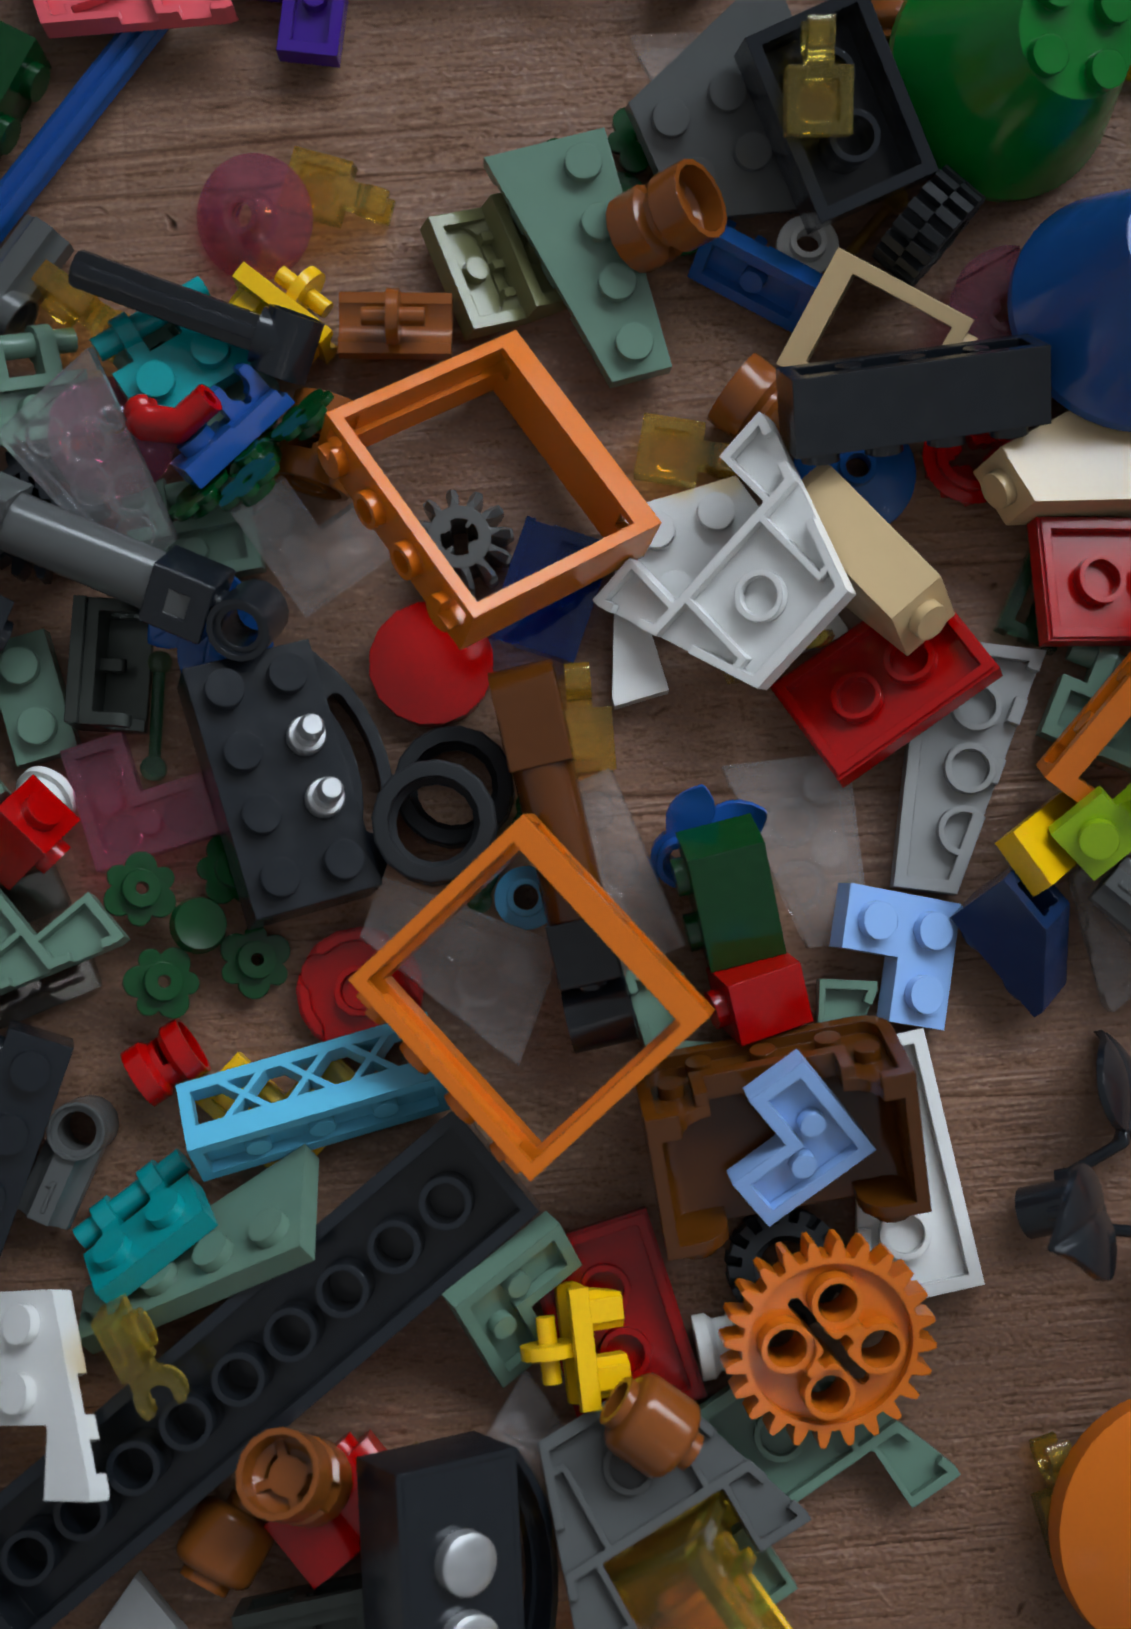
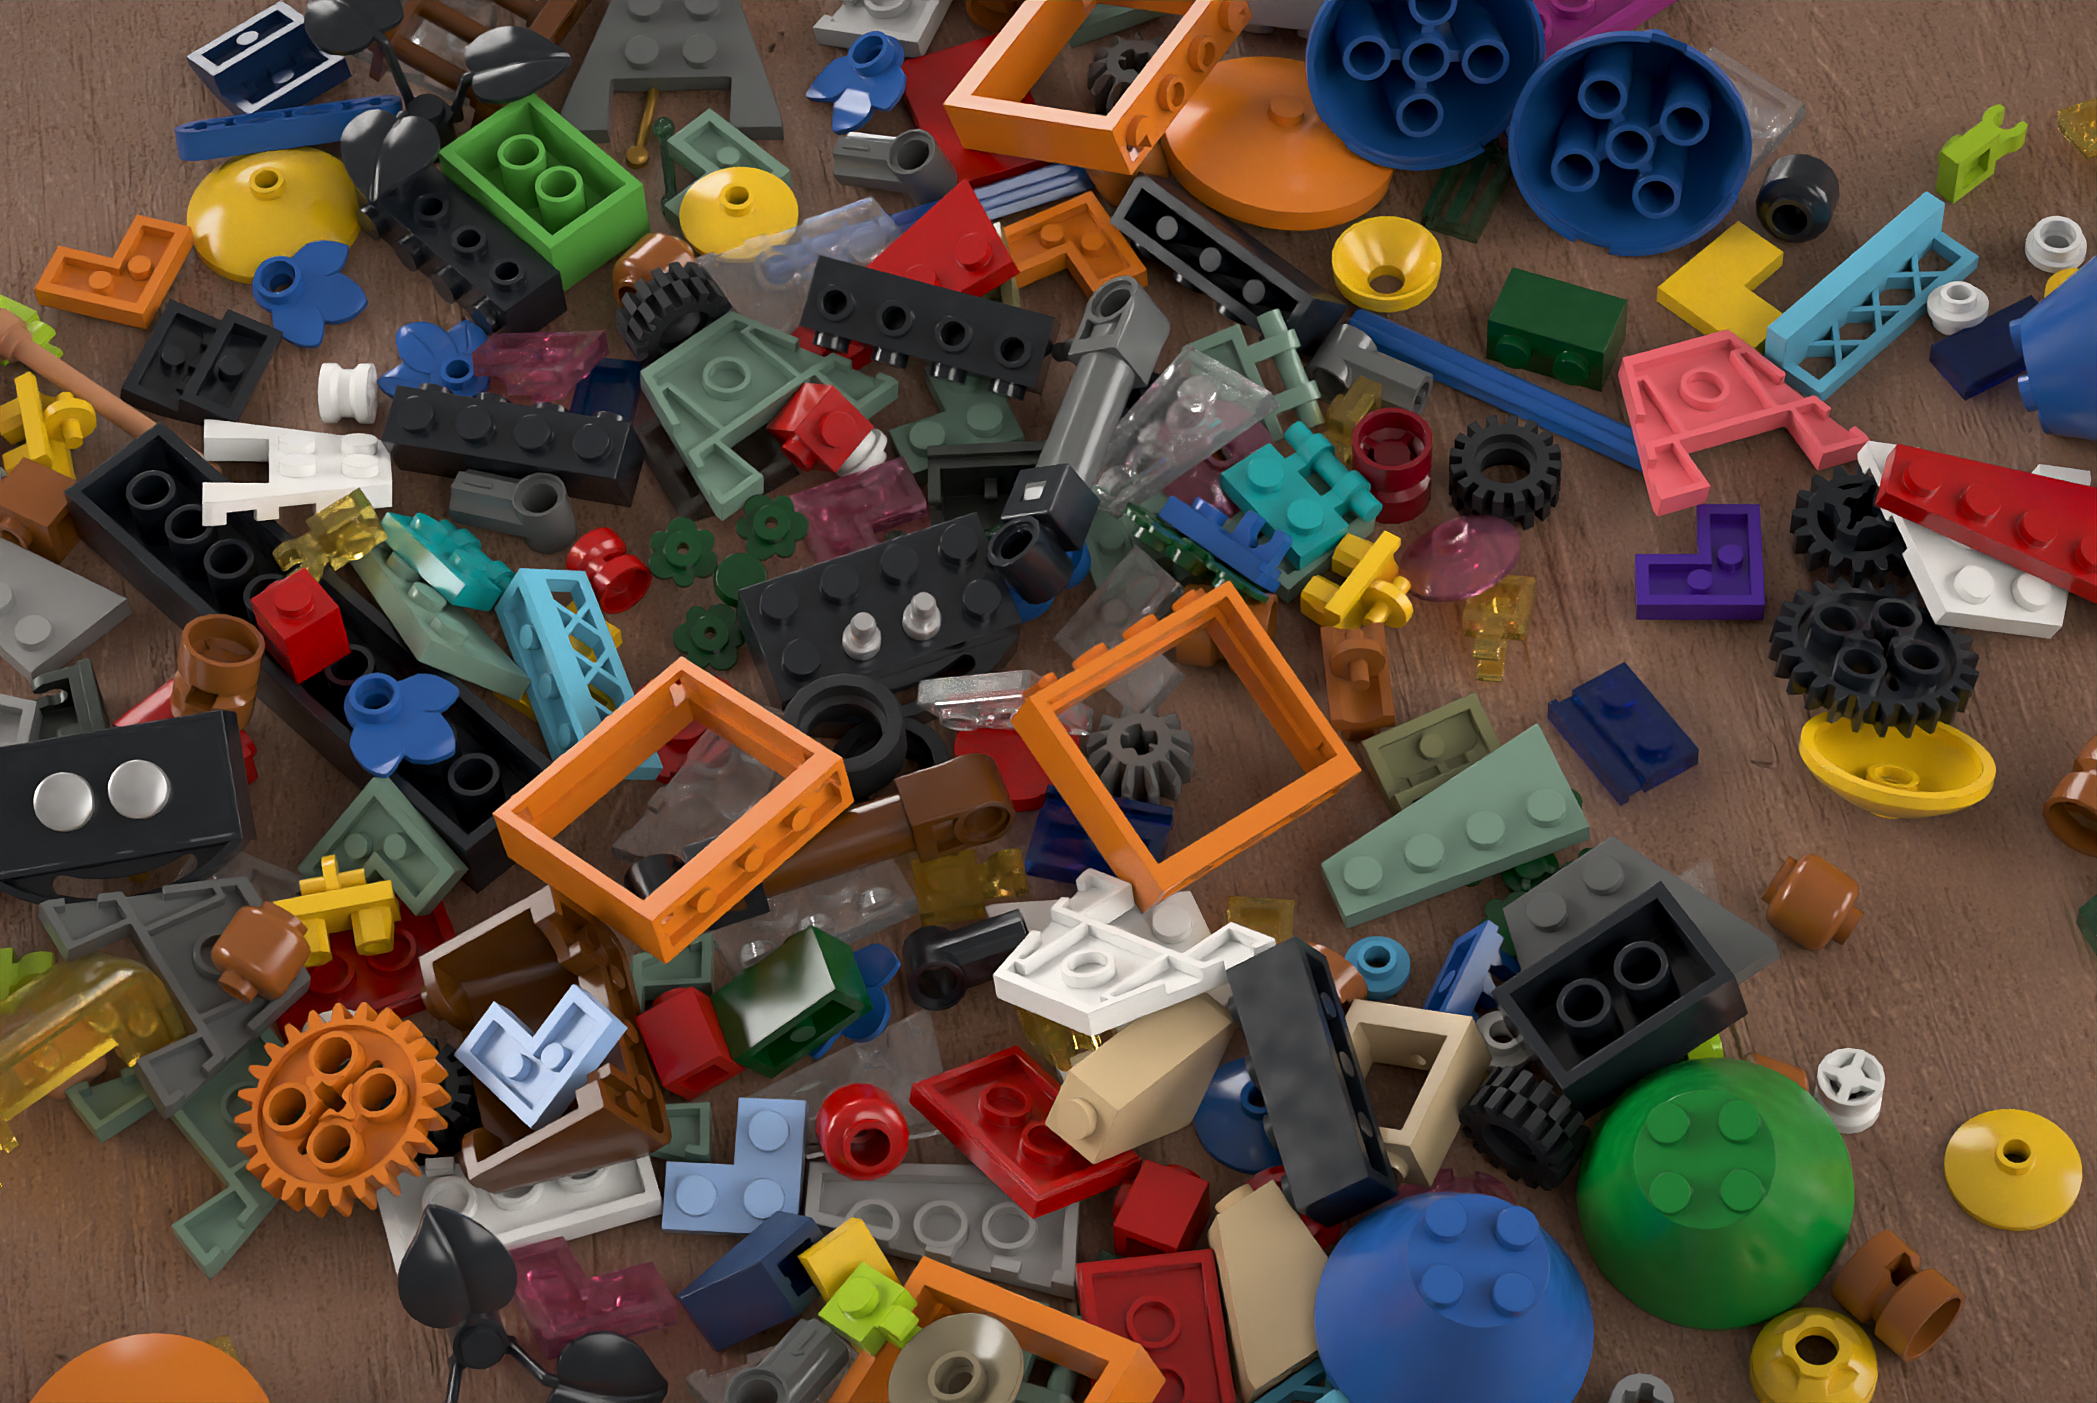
camera: 90 degrees right, 30 degrees down
(135, 134) = (1505, 446): none -> black tyre
(142, 243) = (1396, 458): none -> dark red wheel
(170, 424) = (1216, 481): red arm -> none
(223, 1545) = (145, 654): dark orange head -> none
(255, 1391) = (300, 625): none -> red brick
(277, 339) = (1317, 560): black axle -> none
(389, 1273) = (406, 724): none -> blue plate
(415, 650) = (990, 701): none -> clear wing
(471, 97) = (1623, 733): none -> clear blue plate
(666, 216) = (1490, 873): dark orange wheel -> none
(685, 740) = (967, 957): none -> black piece
(715, 366) = (1383, 981): none -> dark azure plate
(818, 92) = (1607, 941): clear yellow plate -> none
(889, 830) = (862, 1132): none -> red head
(978, 565) = (1160, 1211): none -> red brick
(1039, 1109) = (566, 1304): none -> clear pink plate

